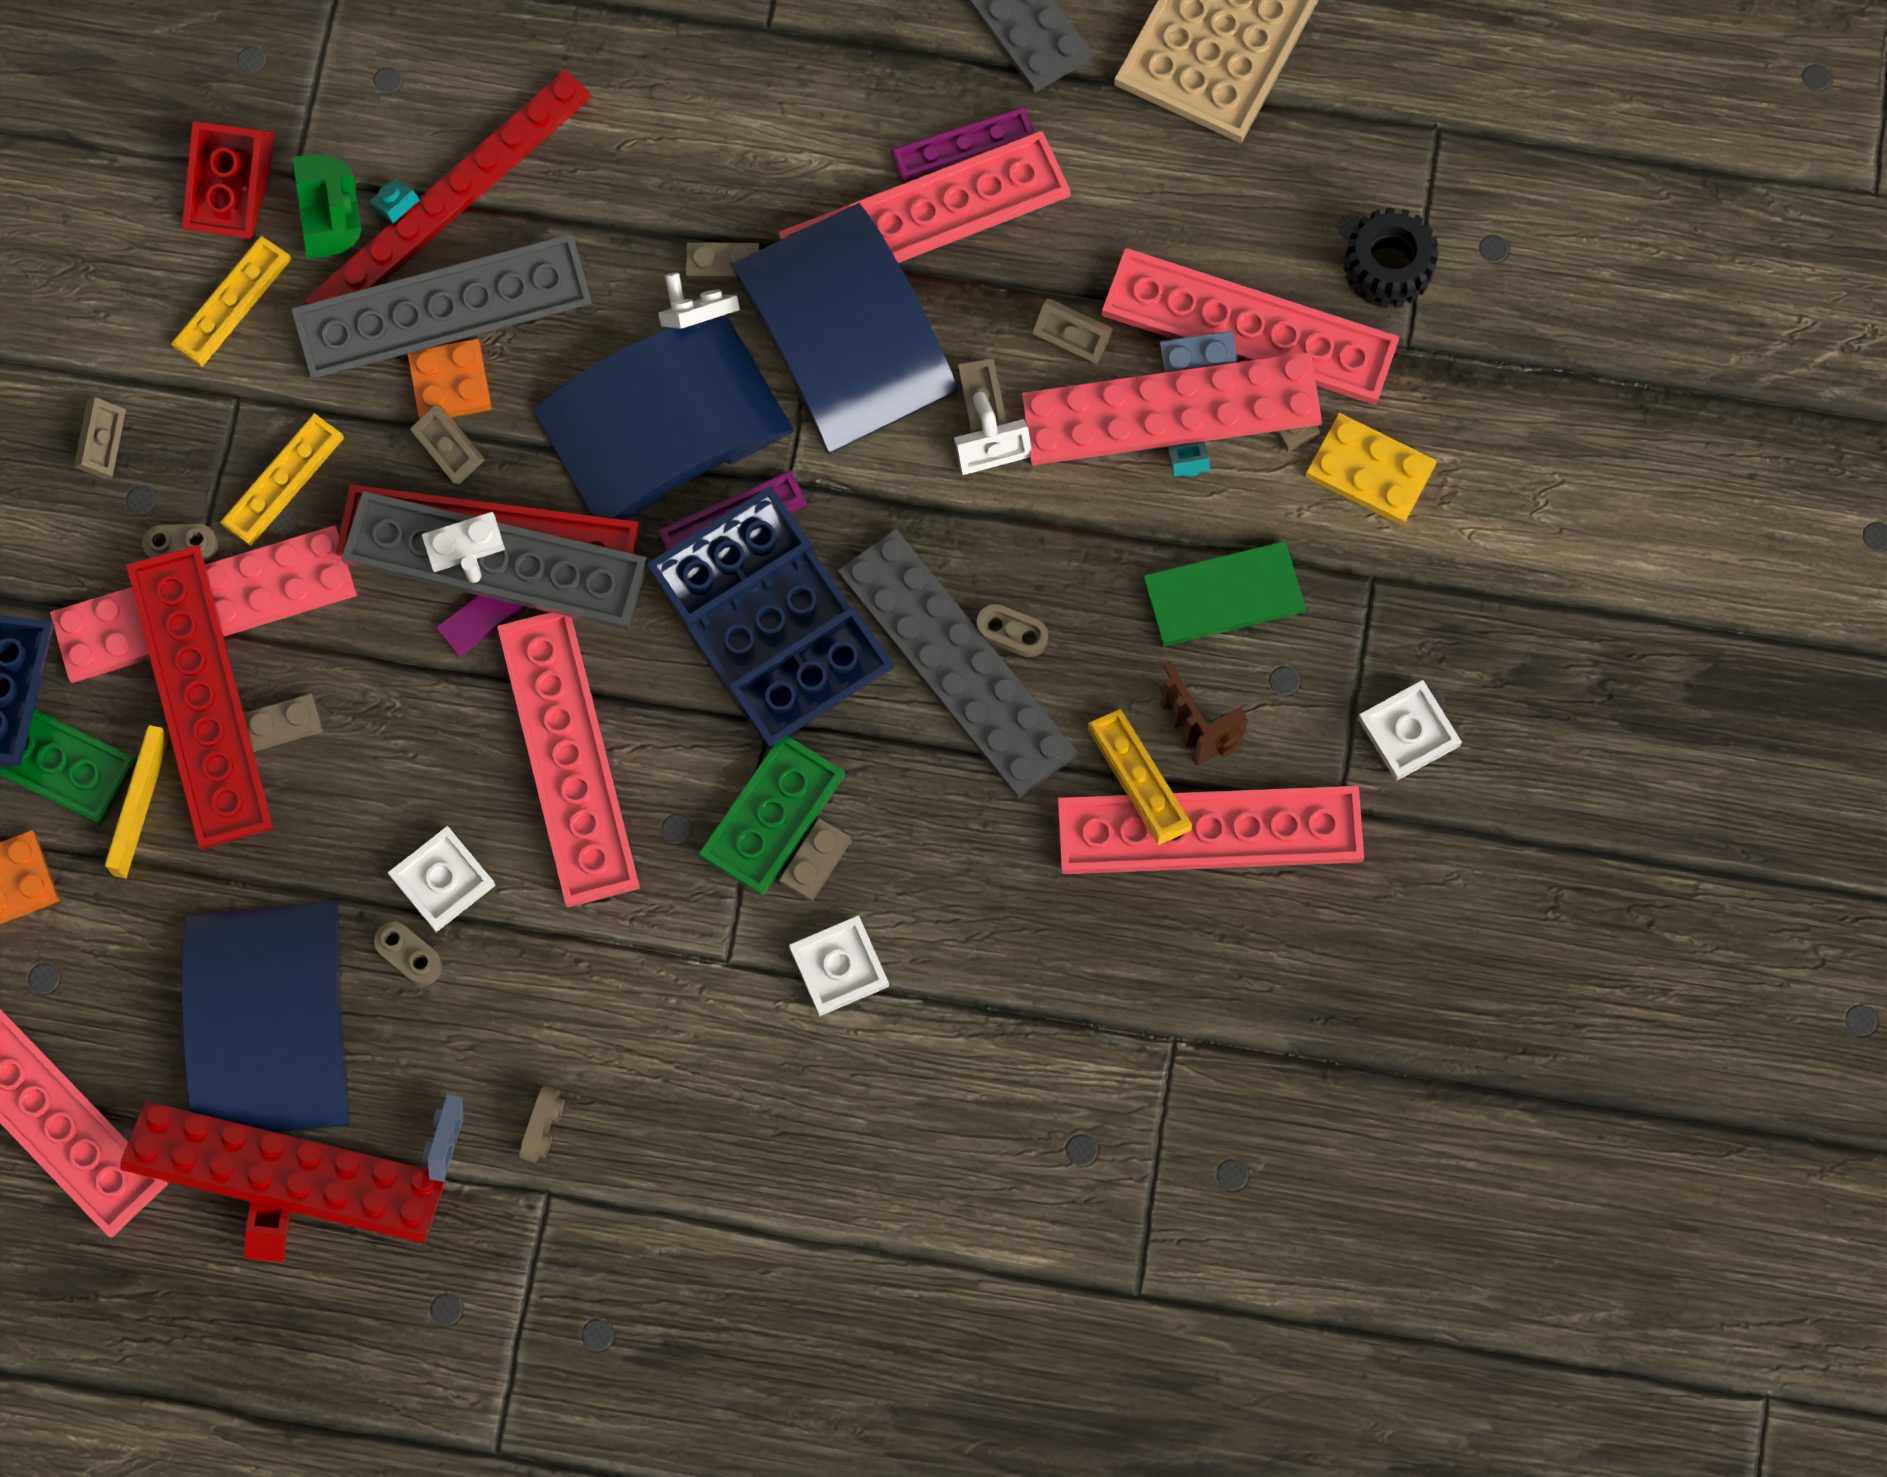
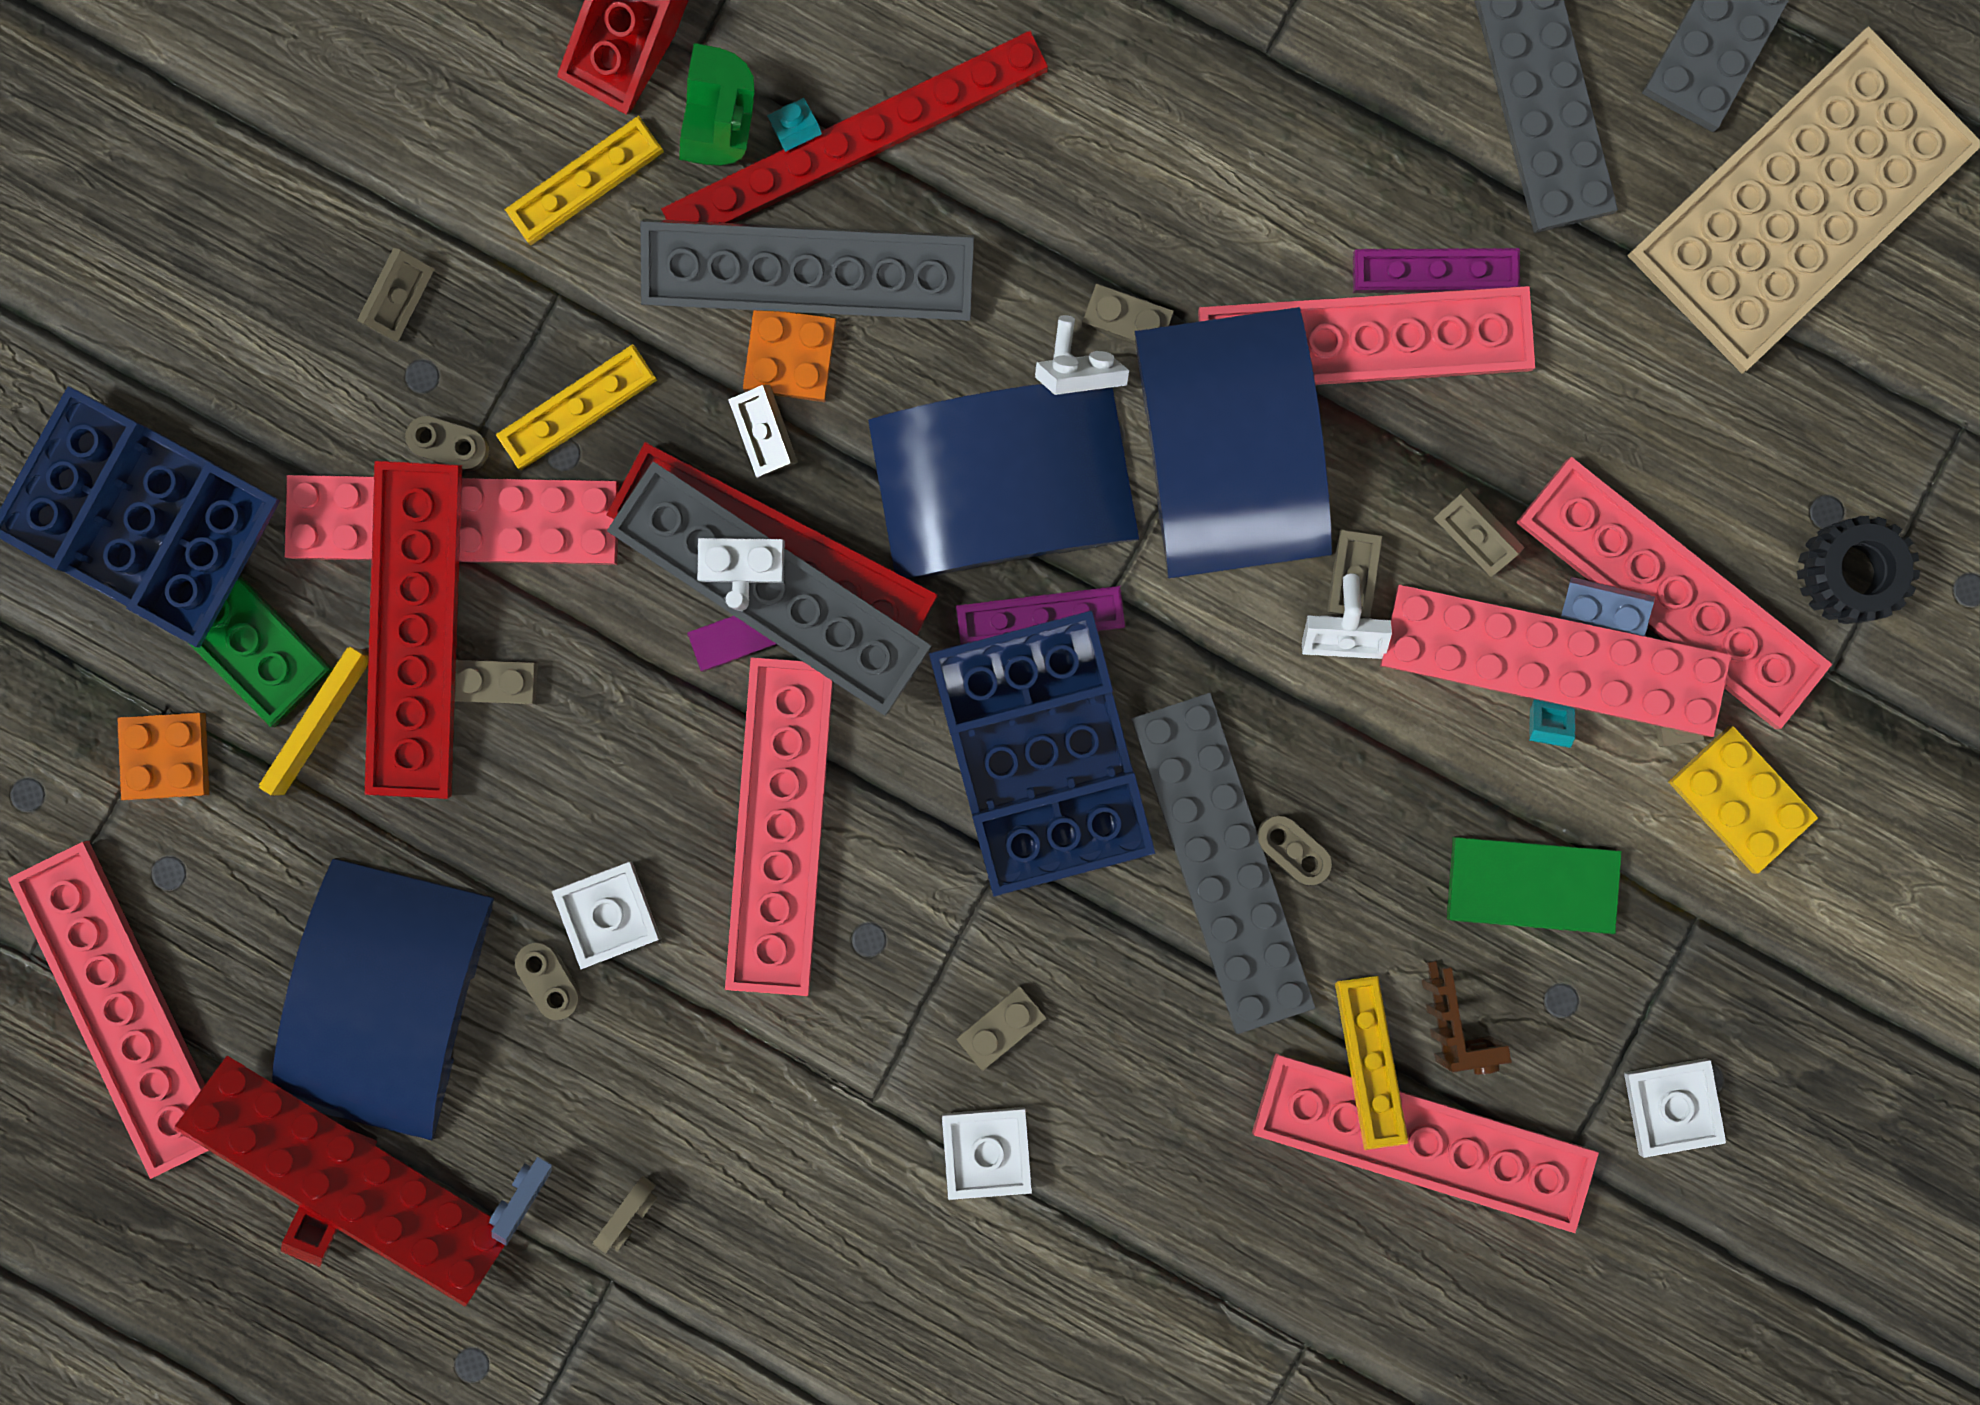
camera: 25 degrees right, 15 degrees up
(772, 815) = (972, 966): green plate -> none

